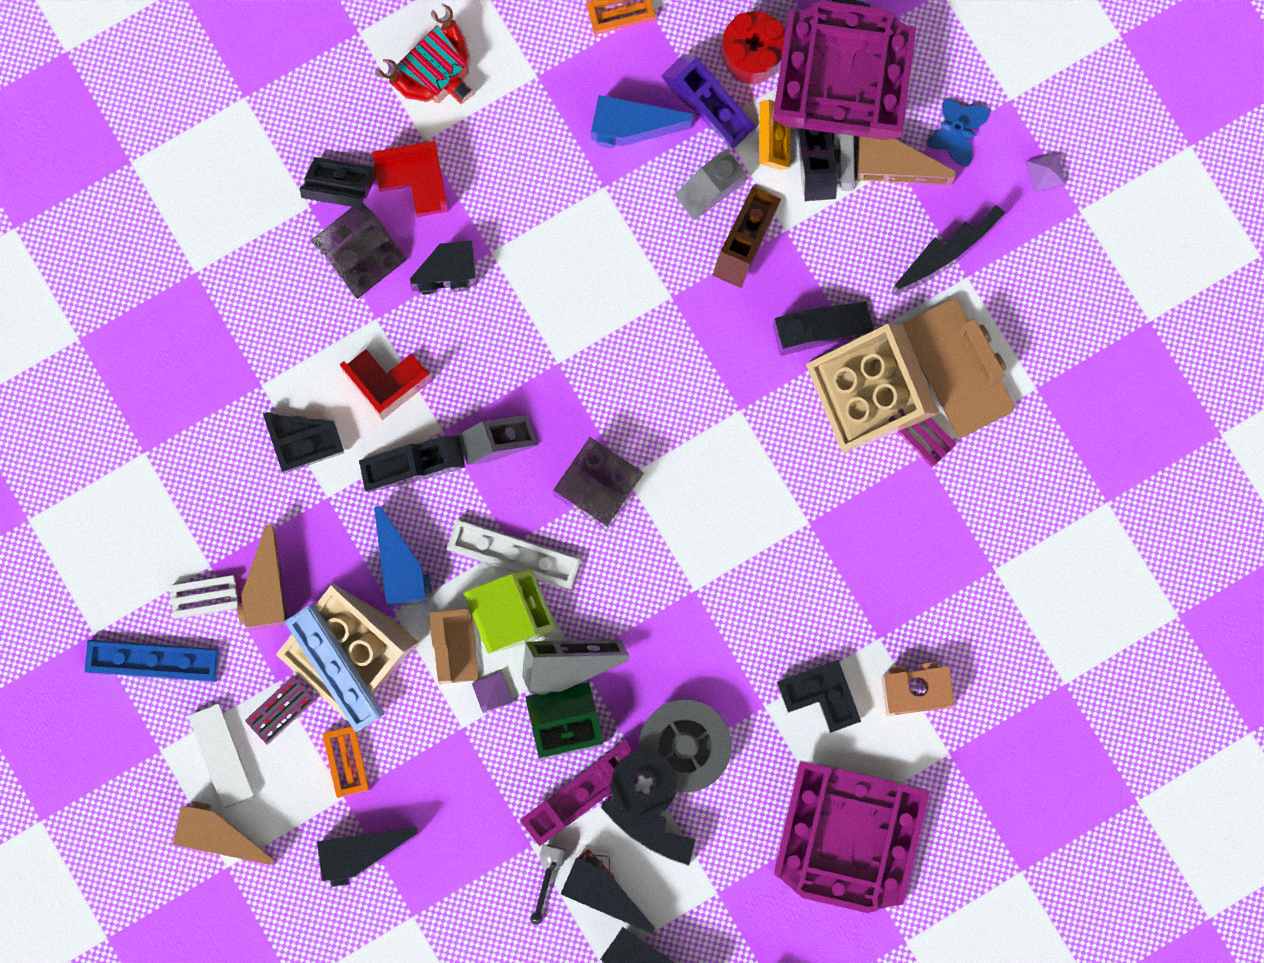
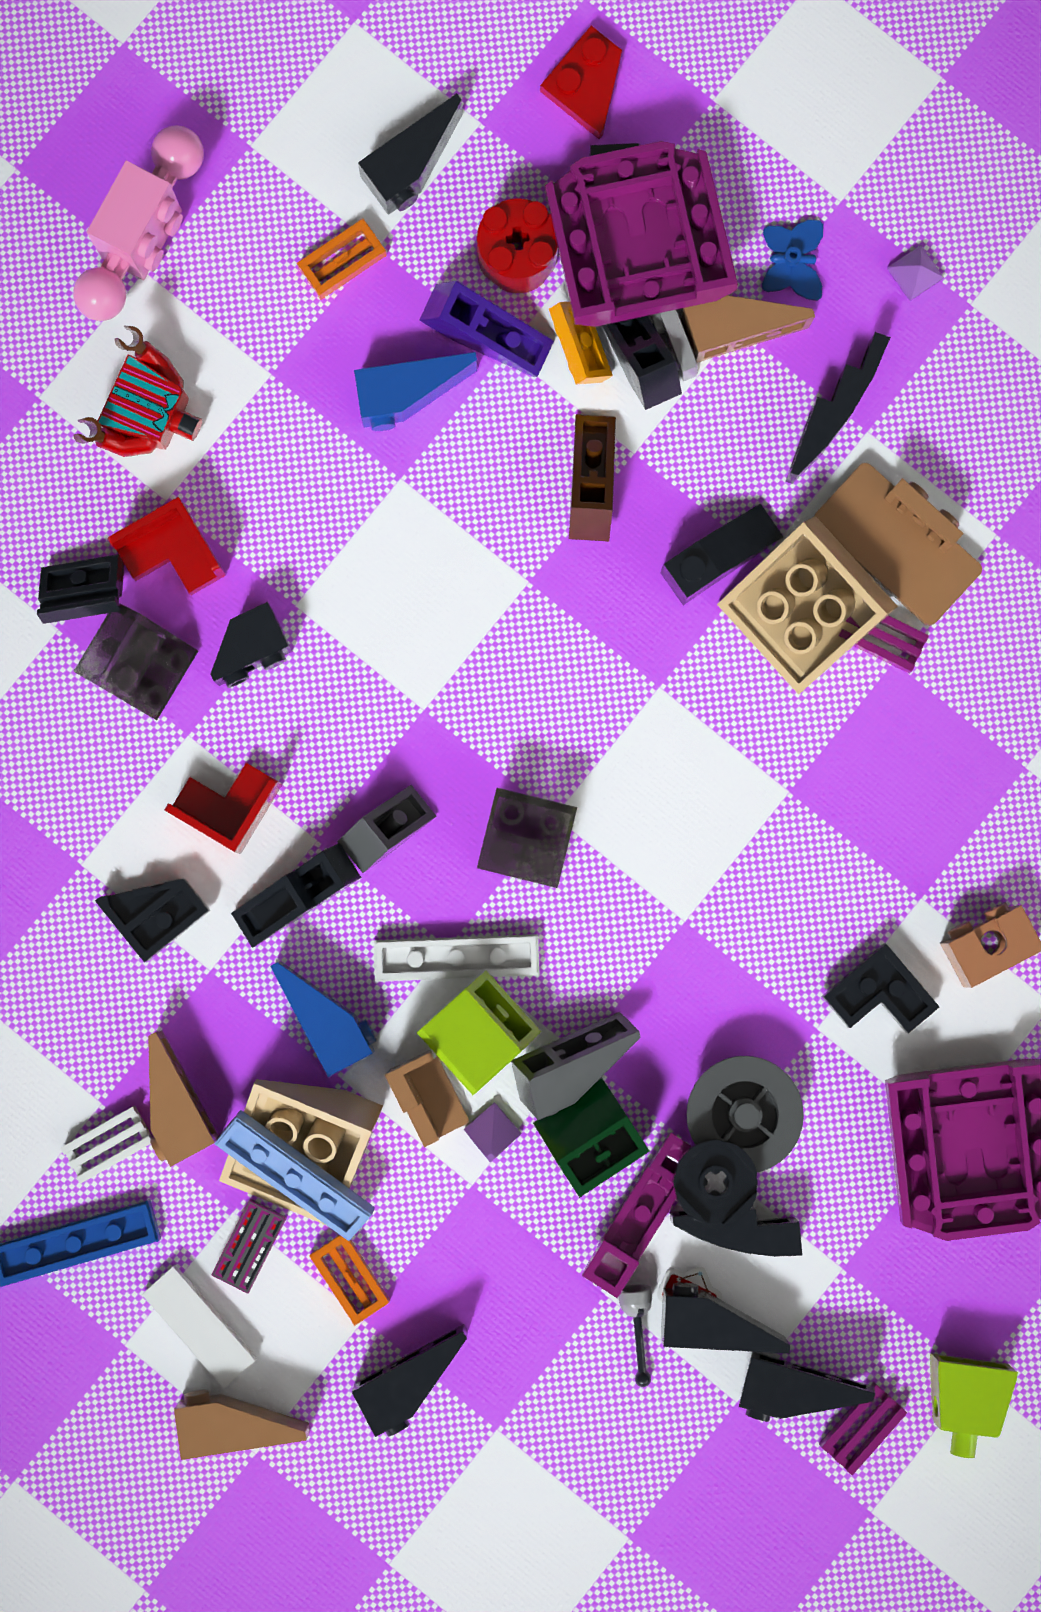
camera: 25 degrees left, 5 degrees up
(711, 184) = (527, 429): flat silver slope -> none

